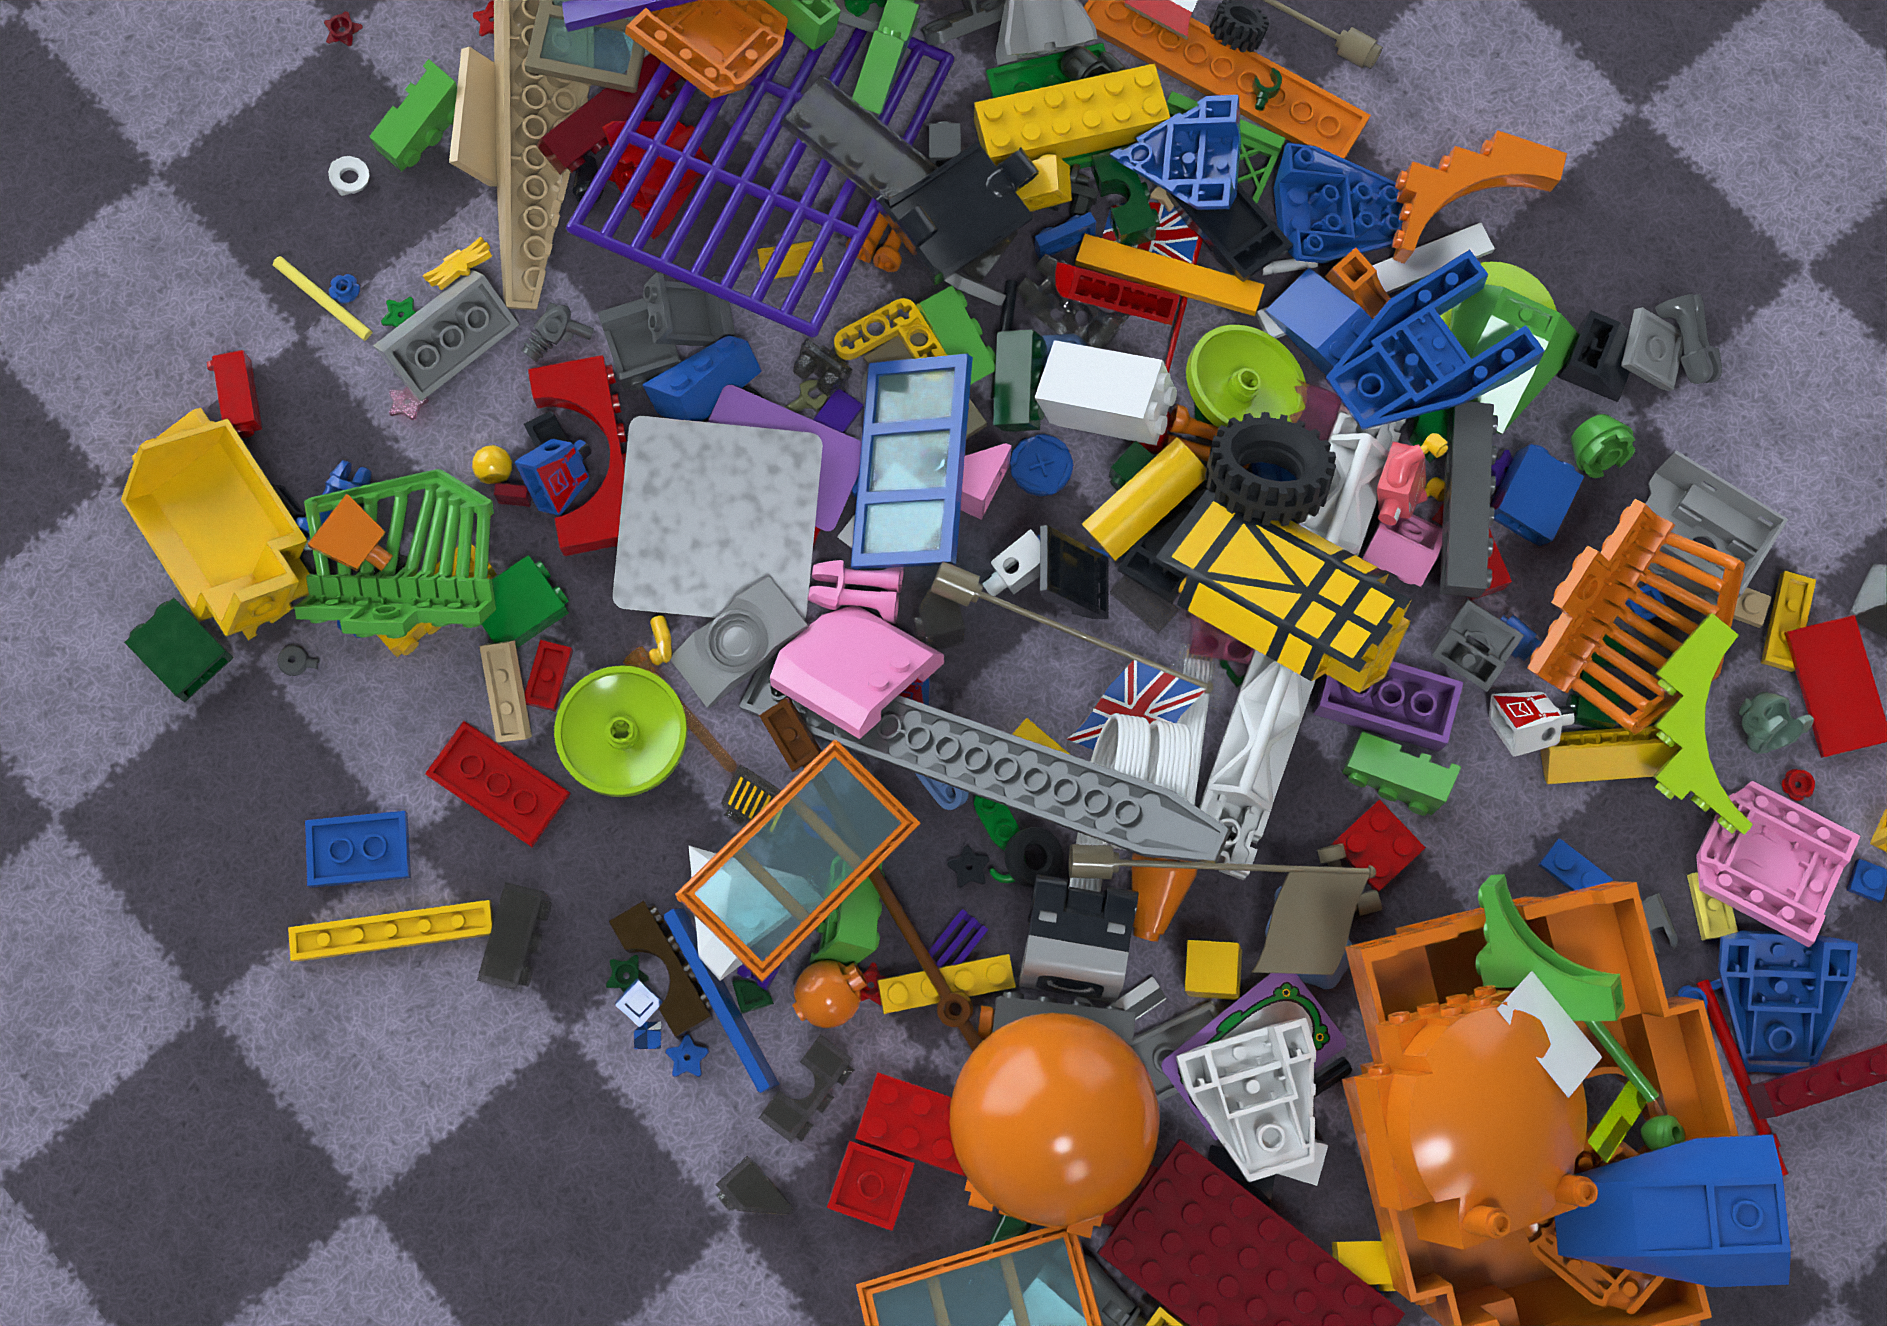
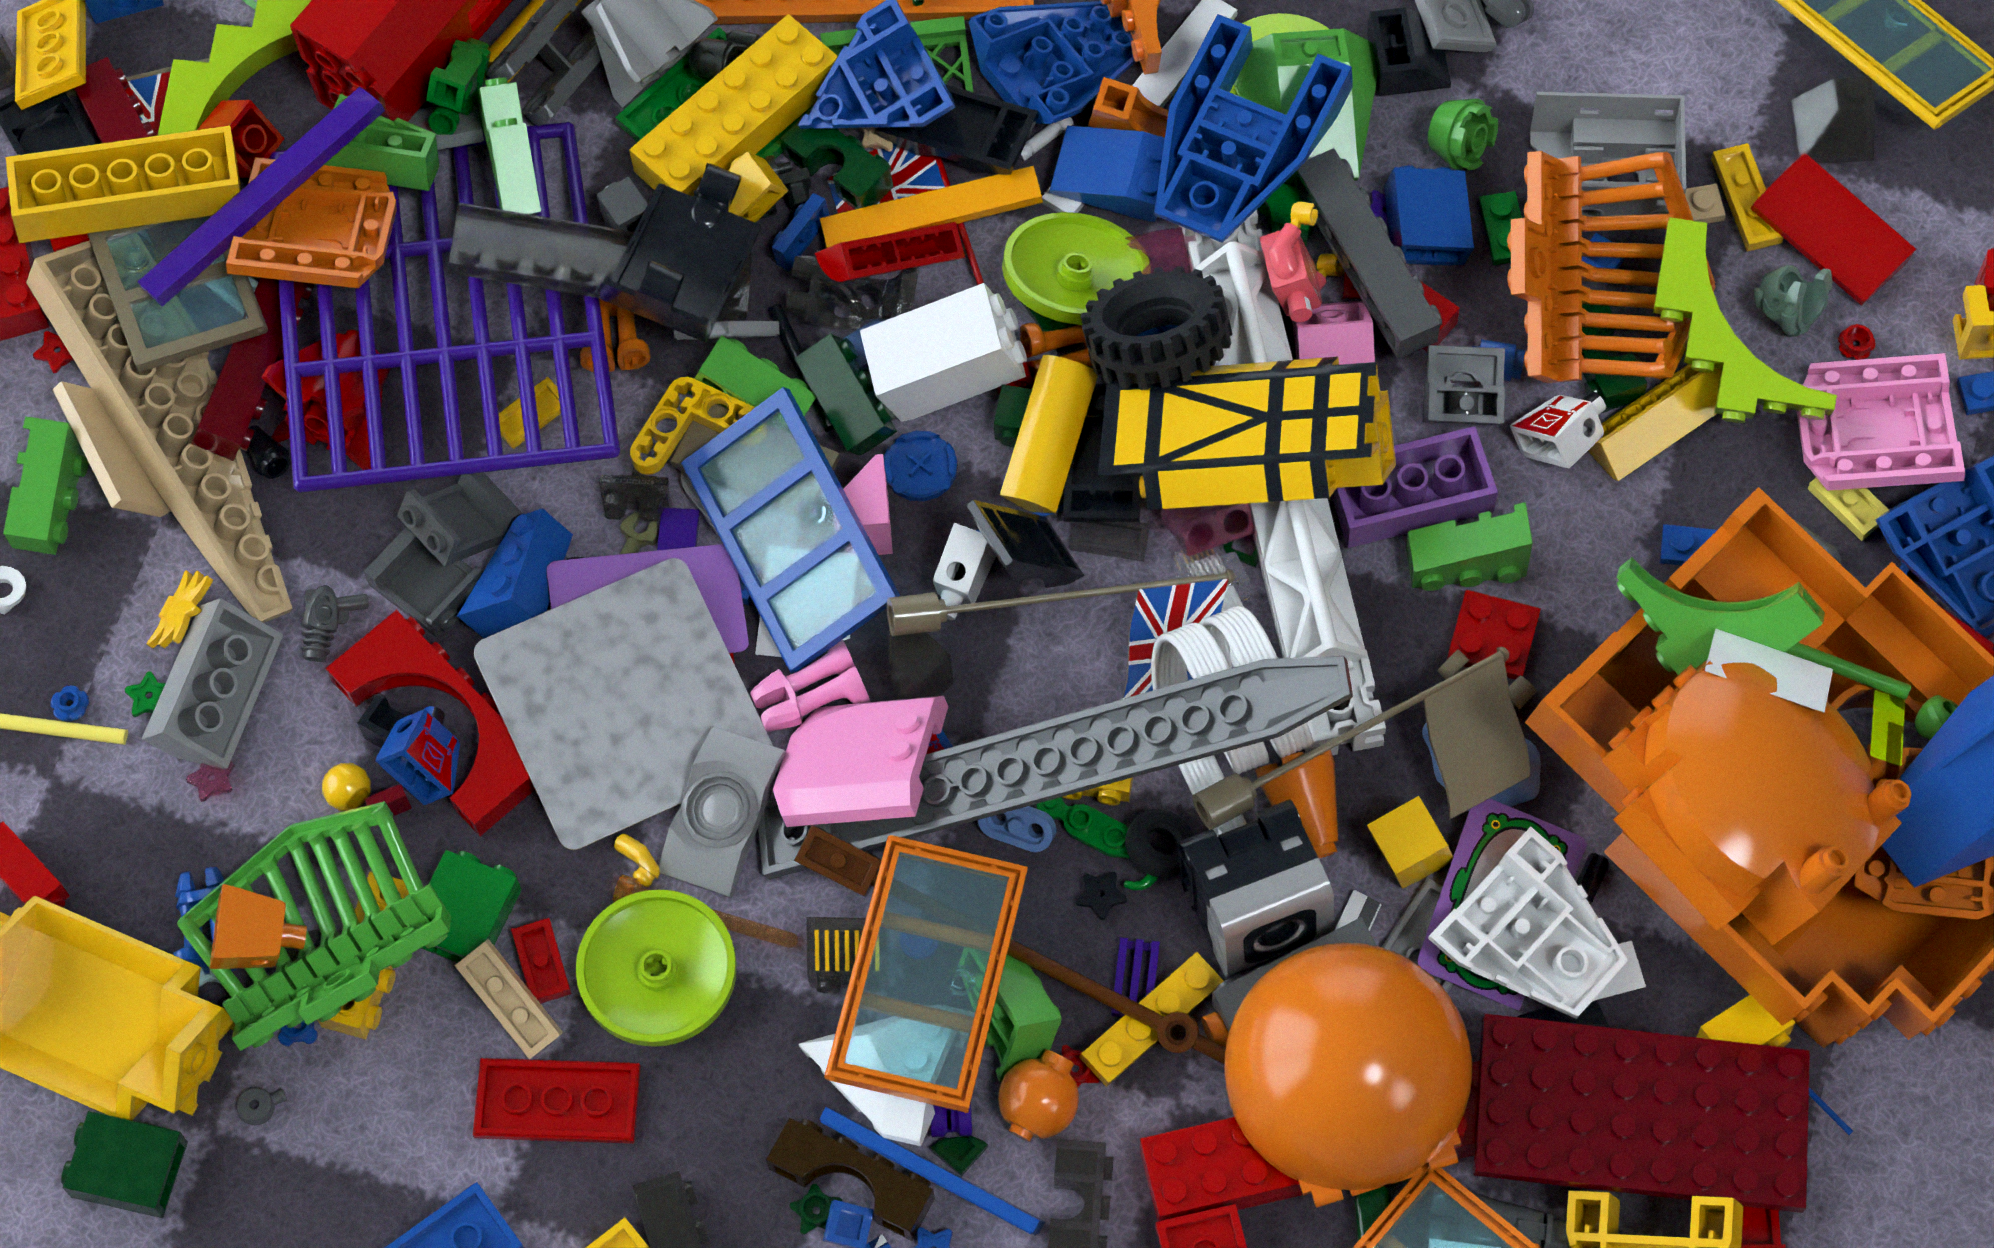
camera: 25 degrees left, 10 degrees down
(1588, 529) = (1497, 214): none -> green plate

